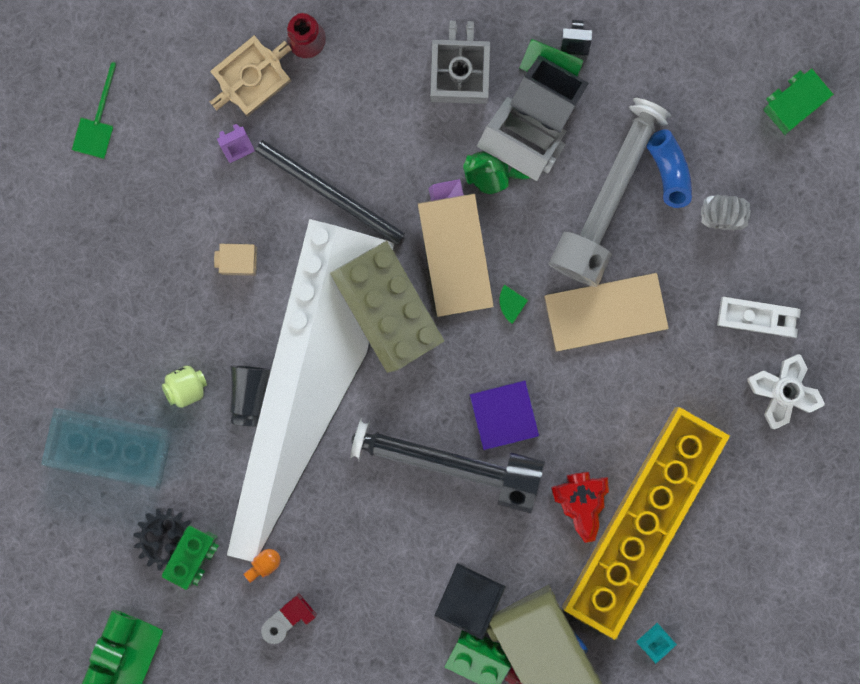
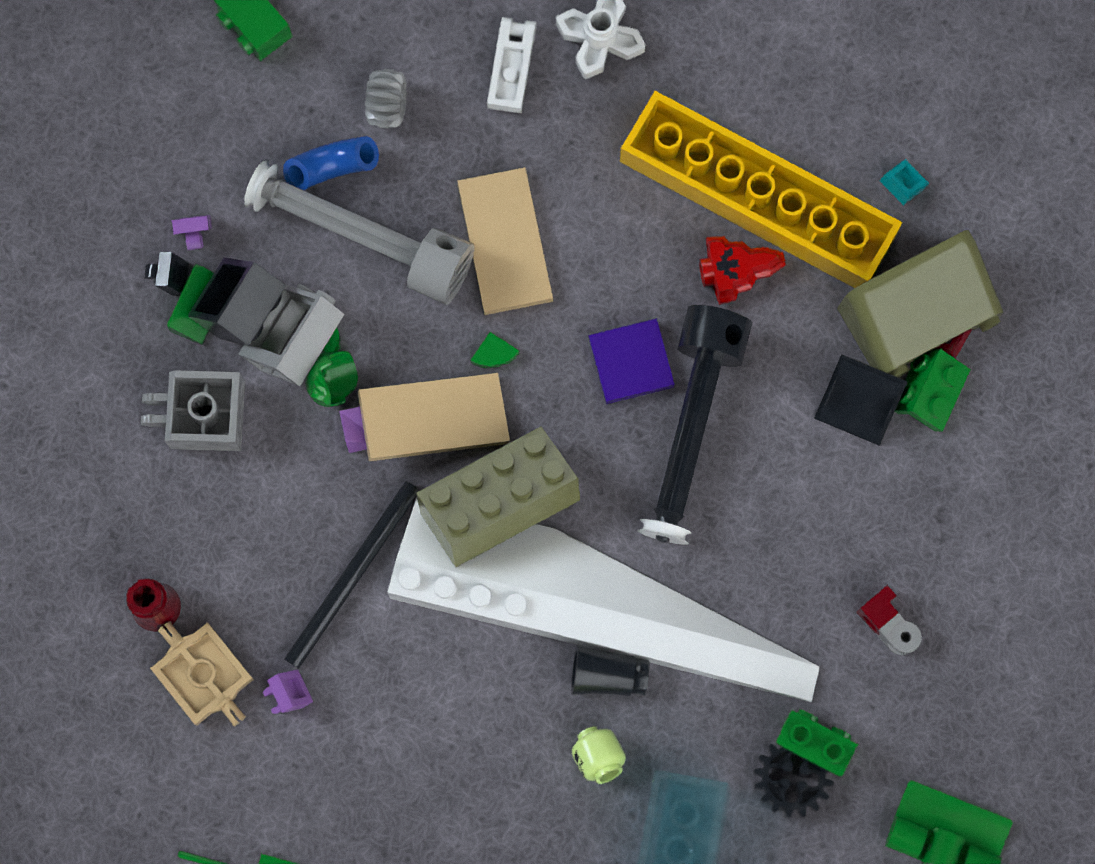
camera: 90 degrees left, 10 degrees down
(236, 259) = (436, 689): tan brick -> none
(263, 564) = (822, 654): orange cylinder -> none
(615, 57) = (192, 228): none -> medium lavender tile

